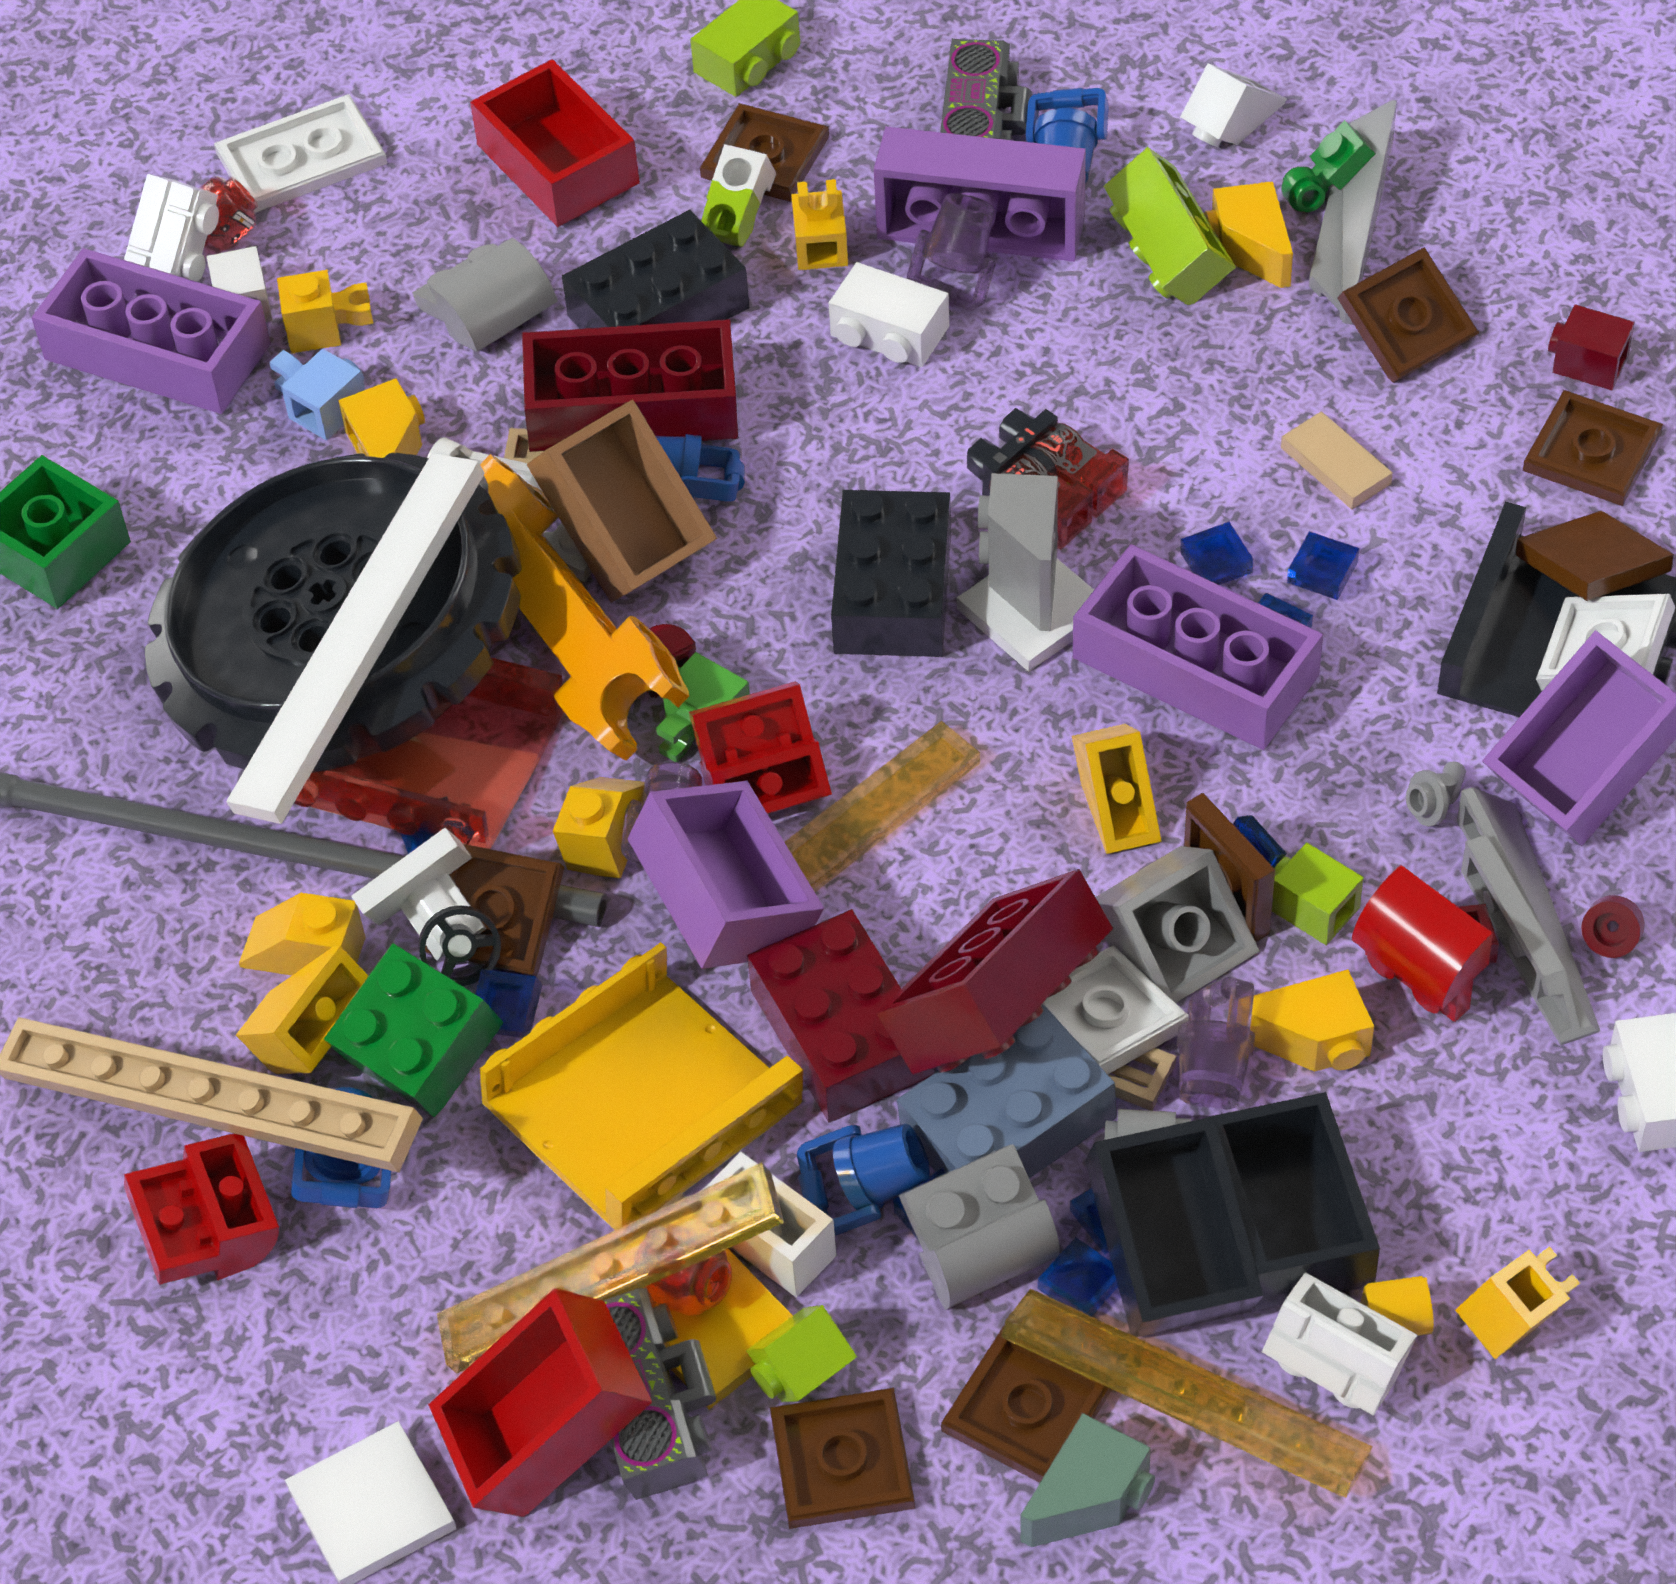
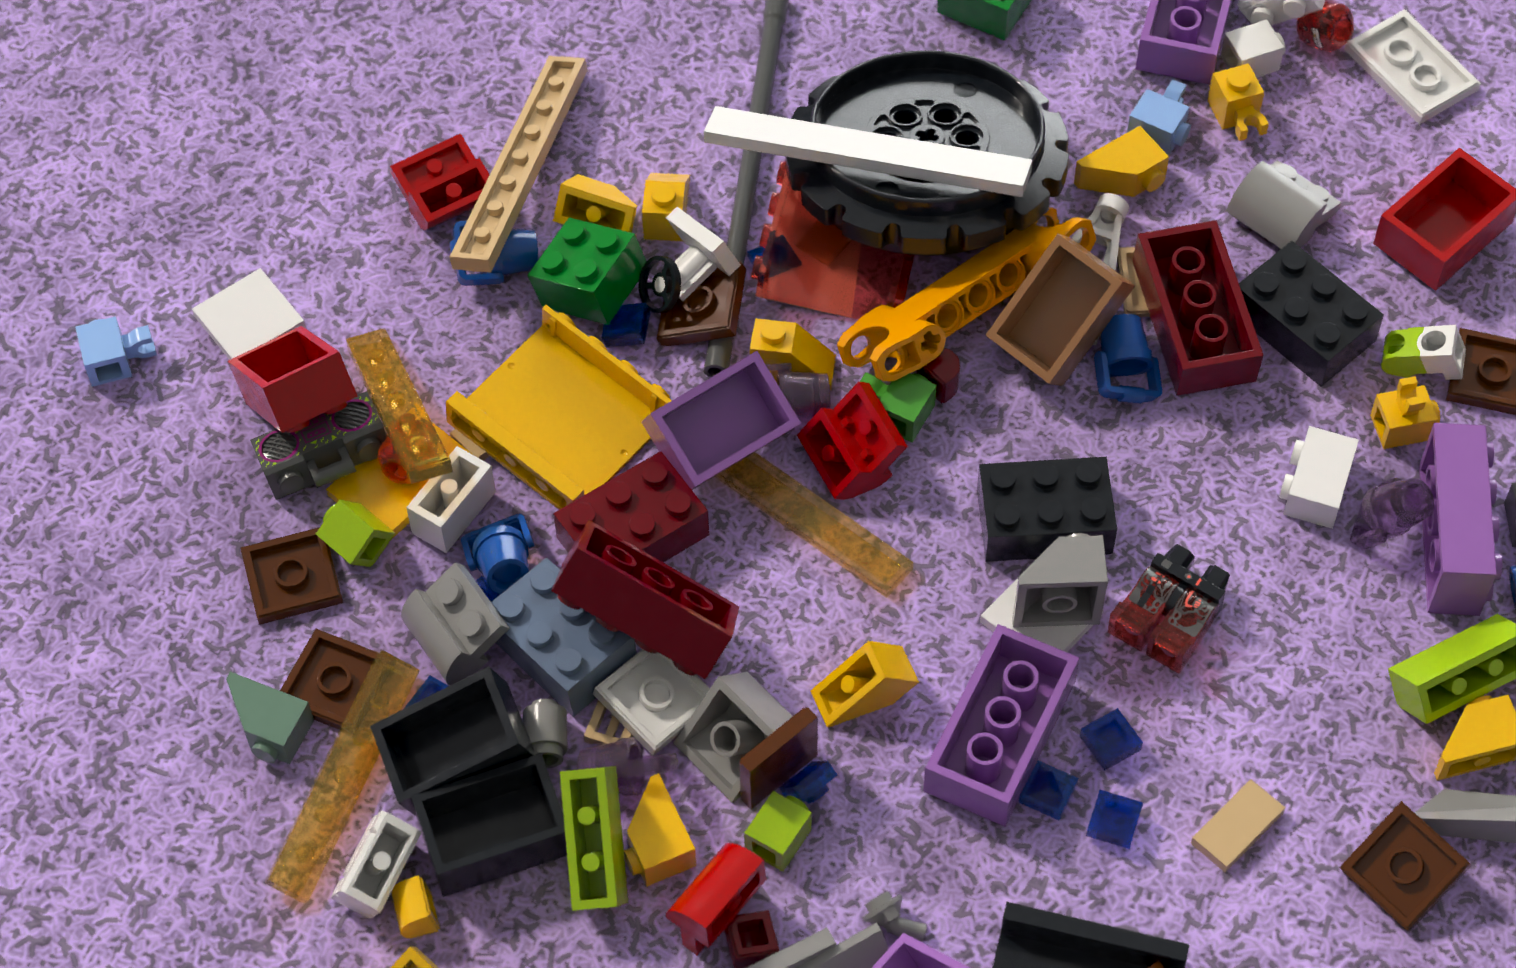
camera: 80 degrees right, 5 degrees up
(1361, 1073) = (594, 838): none -> lime brick

